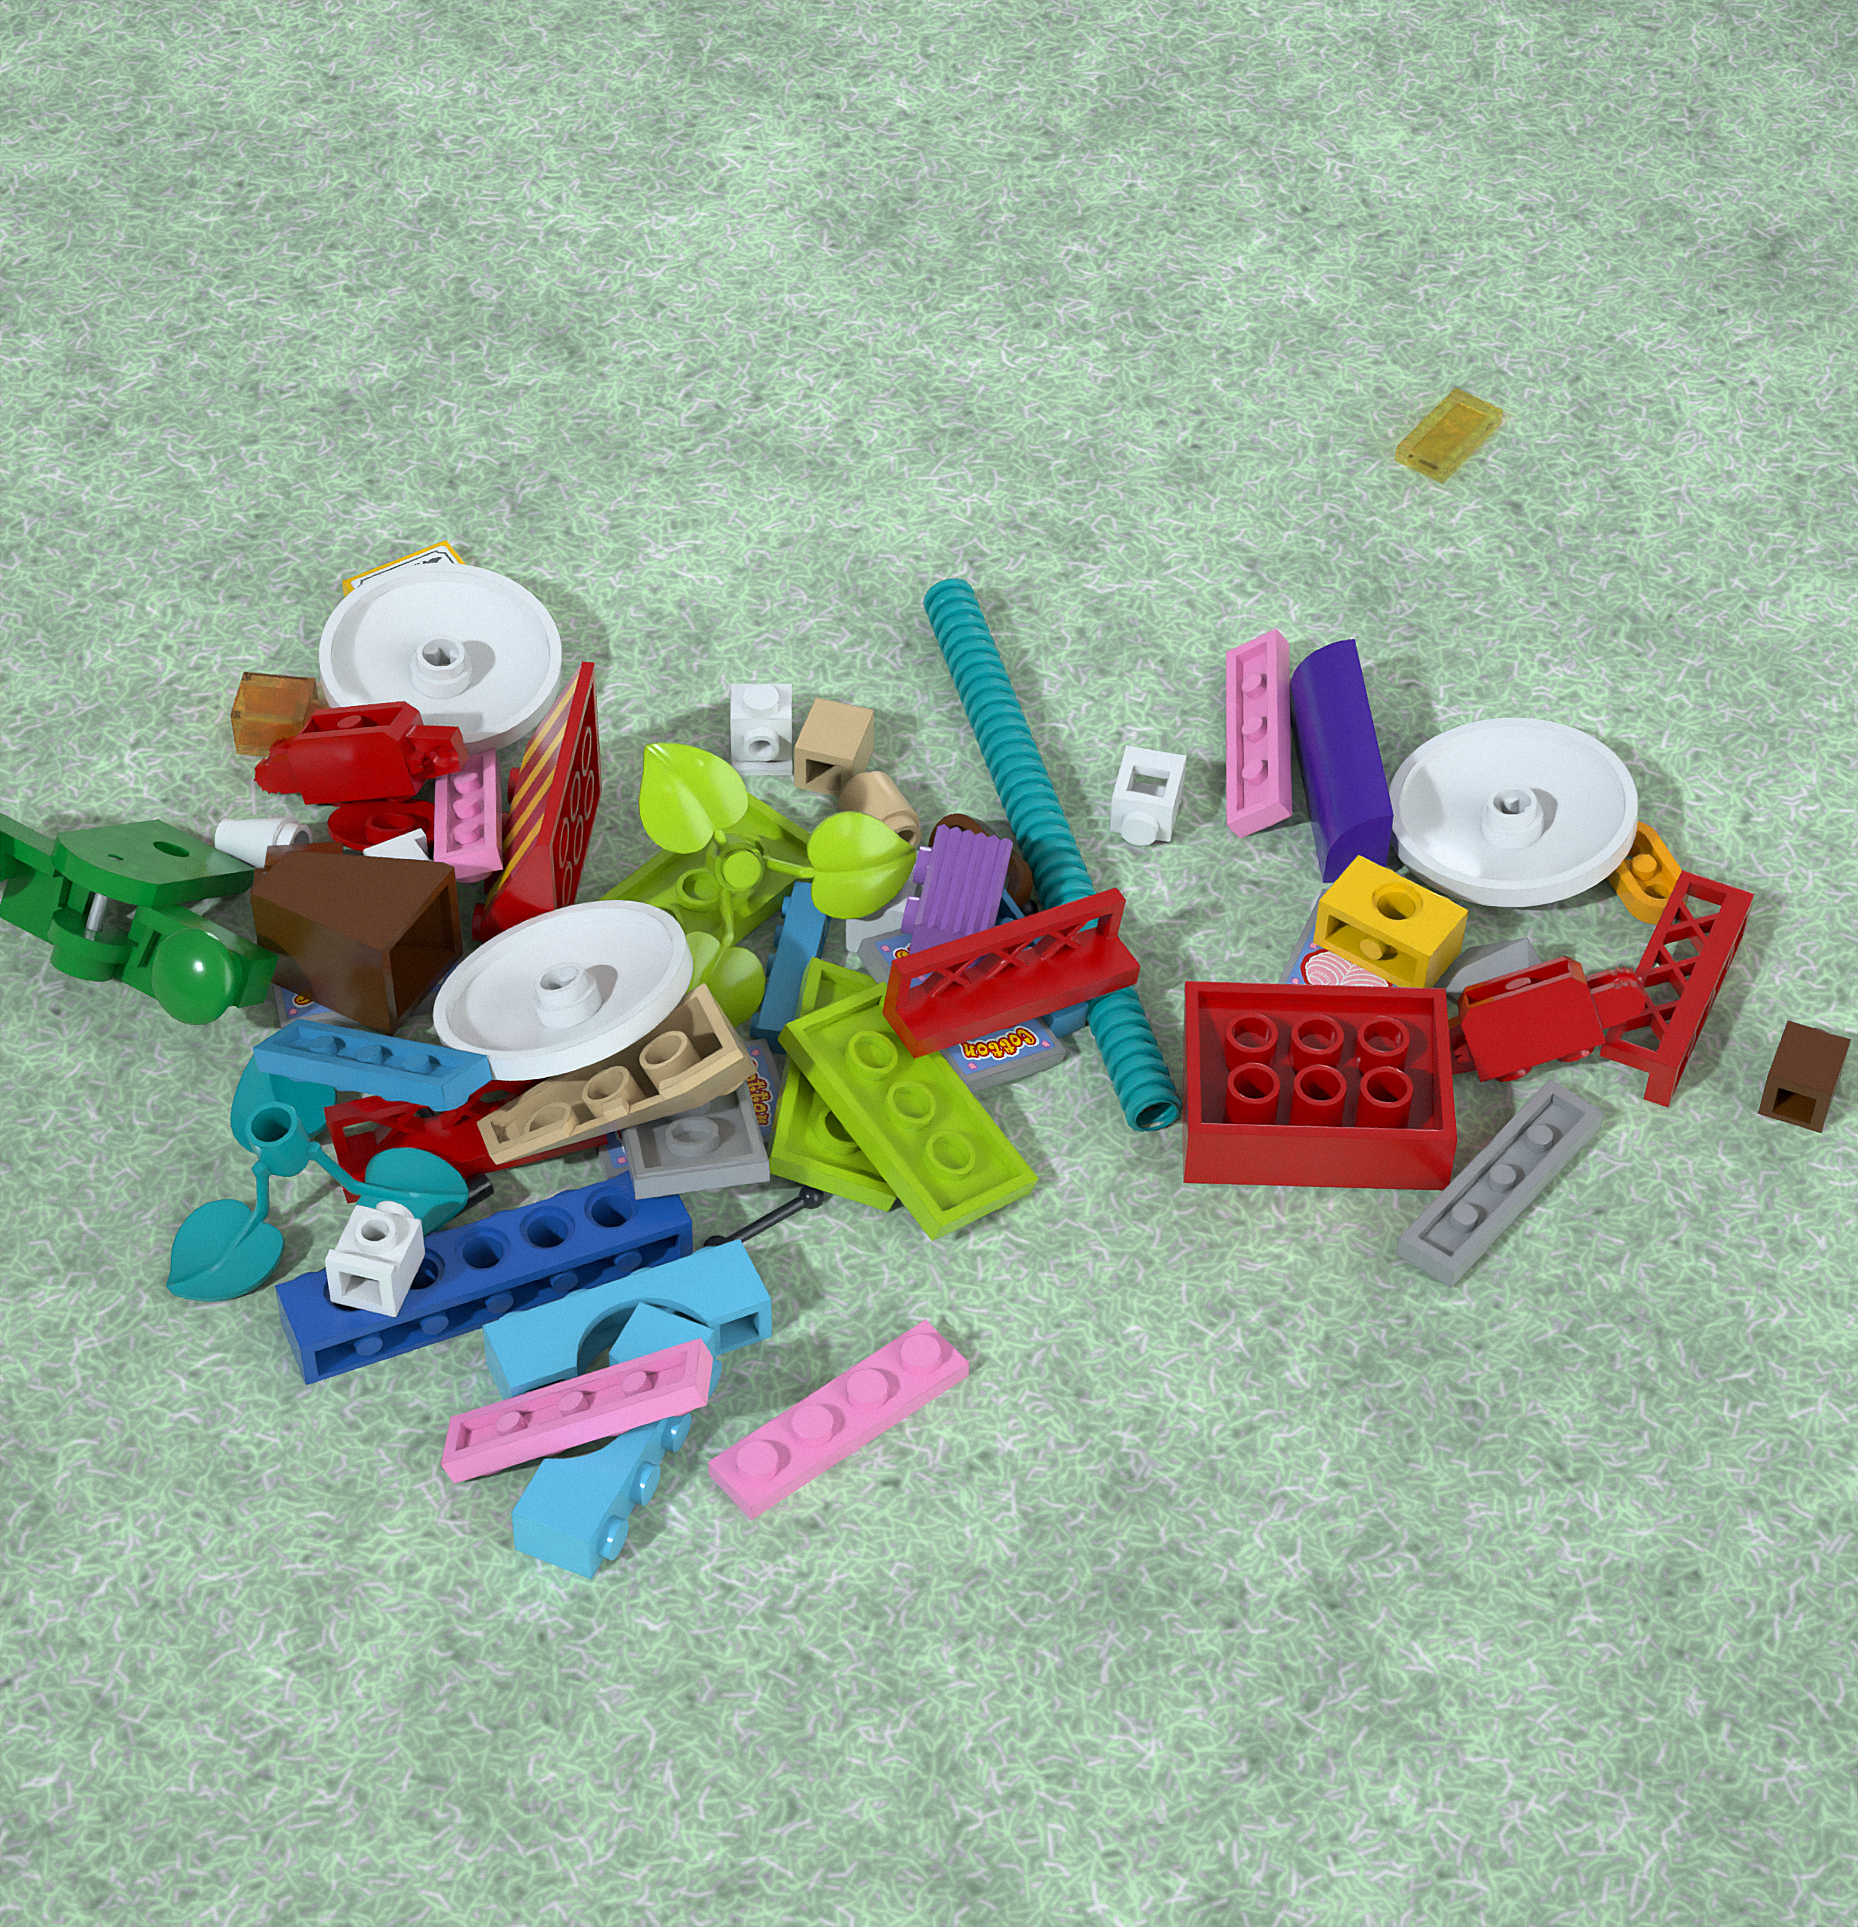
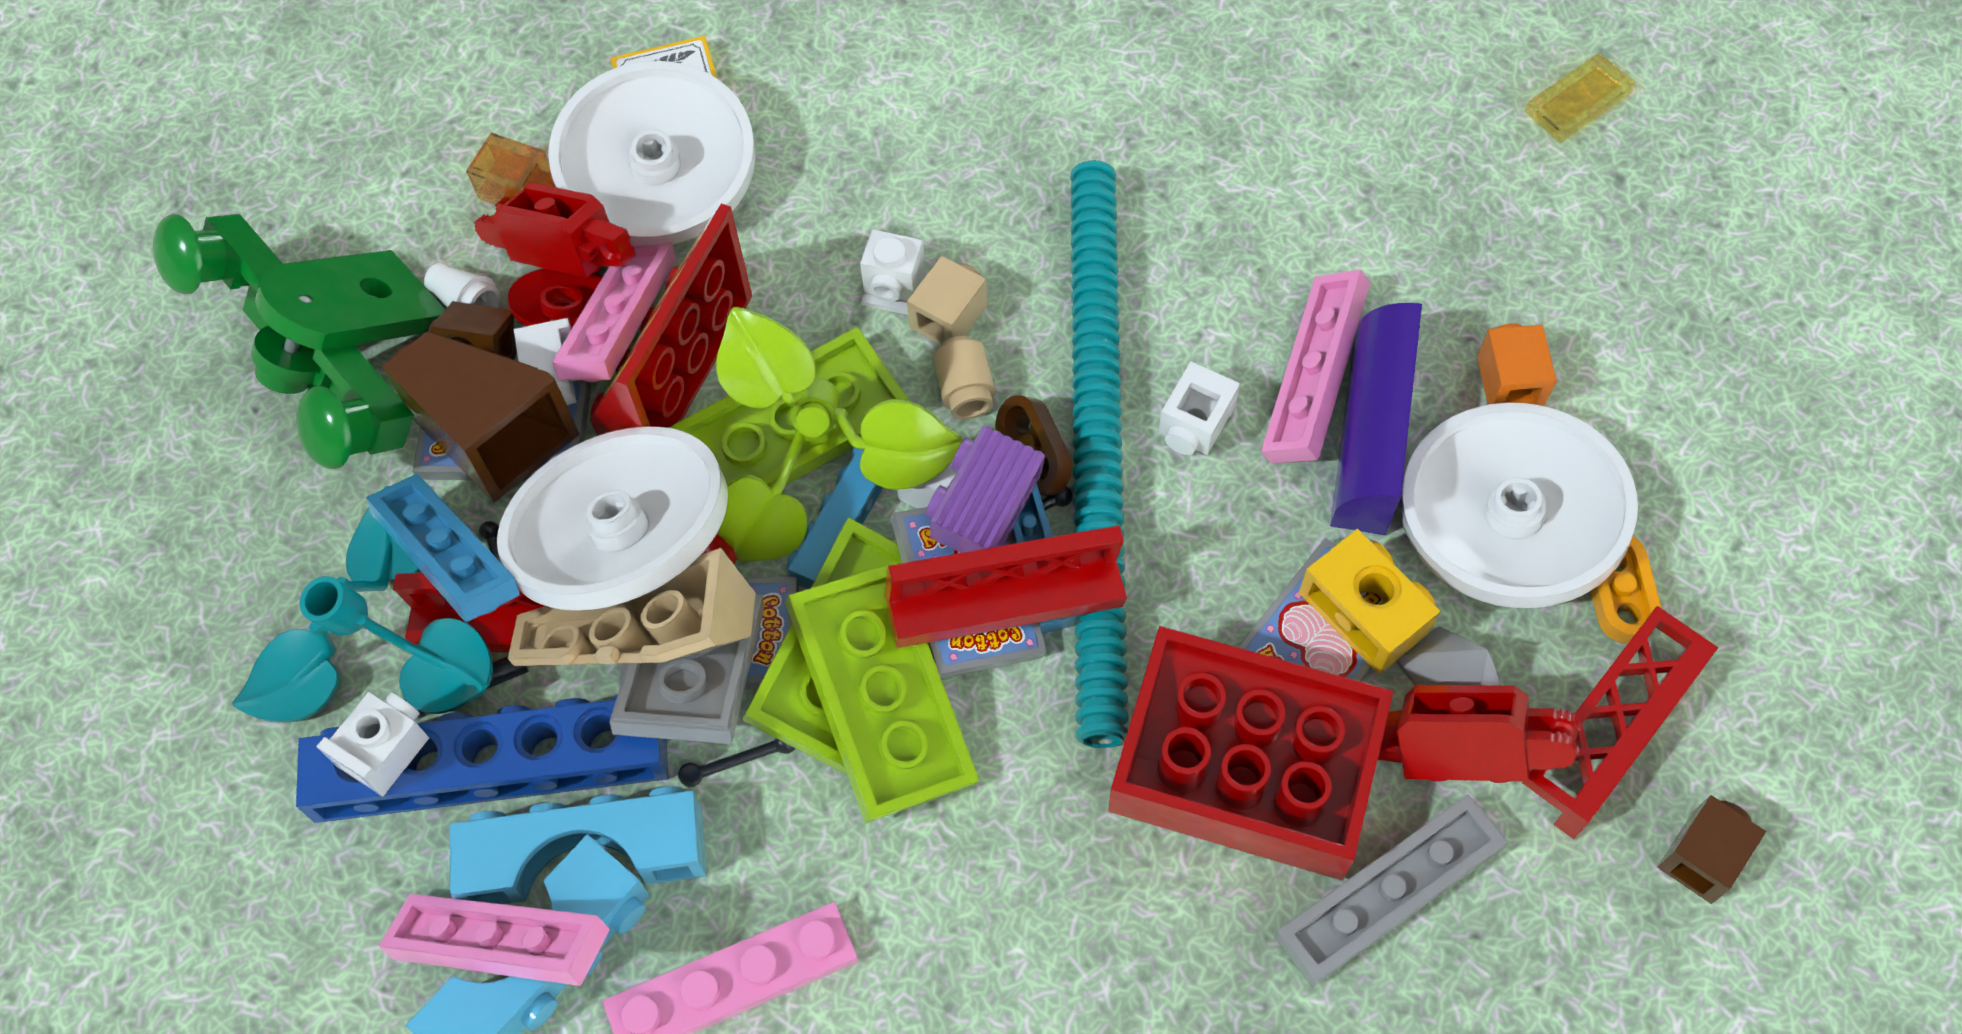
camera: 20 degrees right, 15 degrees up
(1467, 686) = (1516, 365): none -> orange brick

